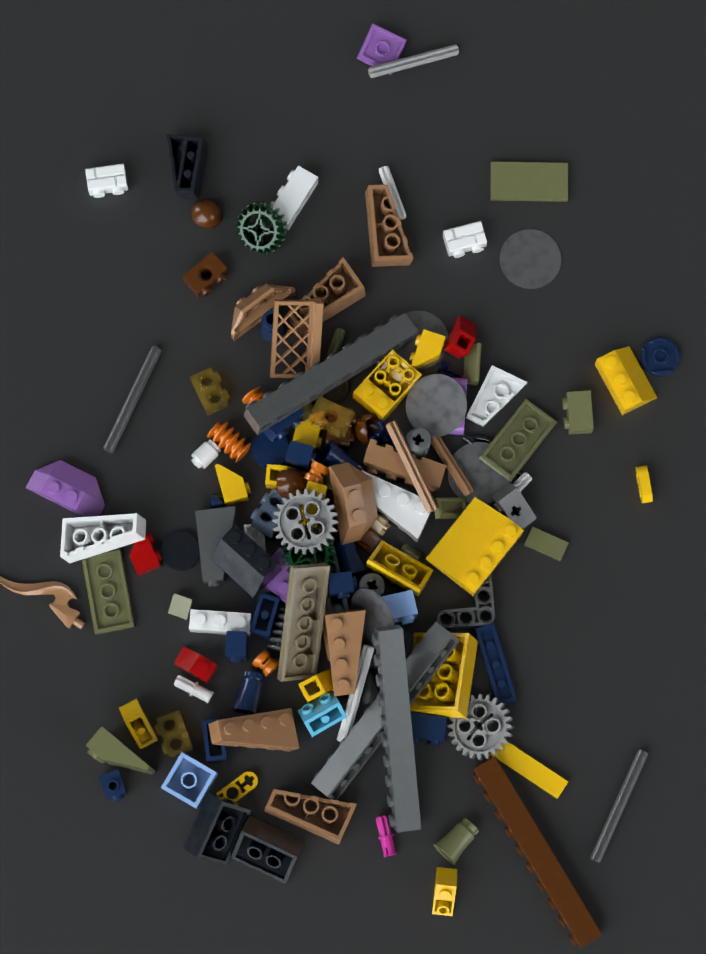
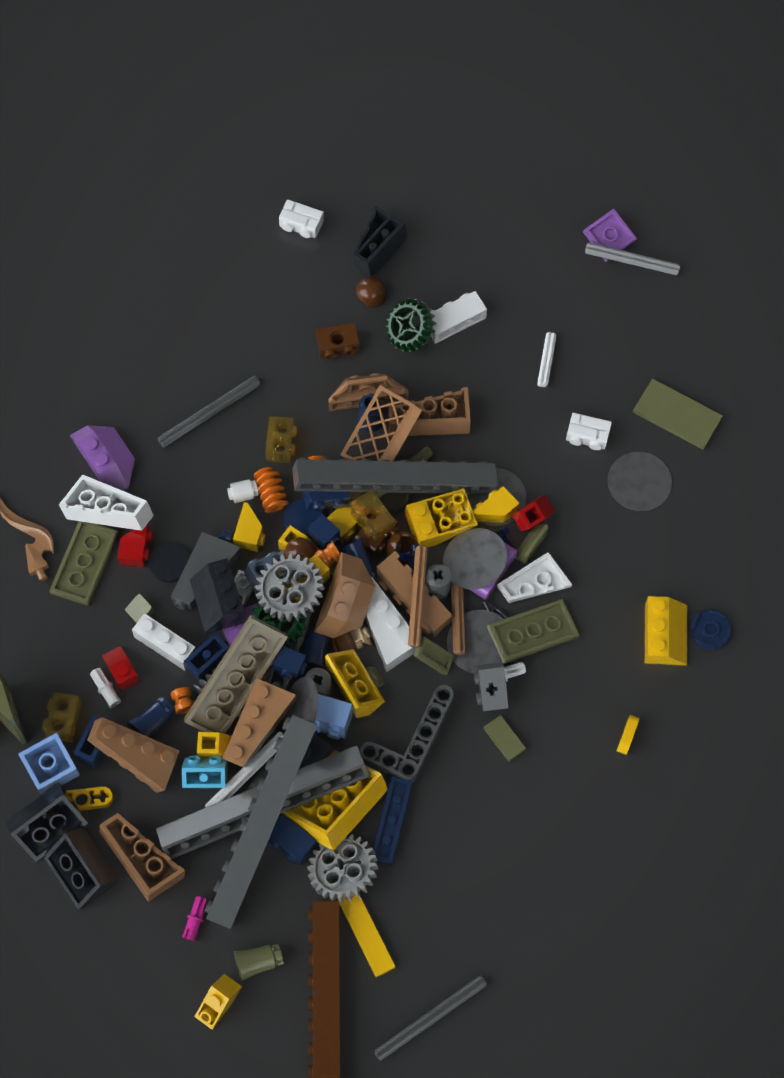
camera: 30 degrees right, 10 degrees down
(138, 724) = (36, 689): yellow slope -> none
(236, 646) = (165, 669): dark blue brick -> none
(386, 235) = (519, 389): medium nougat wedge -> none
(474, 545) = (435, 700): yellow slope -> none
(579, 412) = (604, 636): olive brick -> none

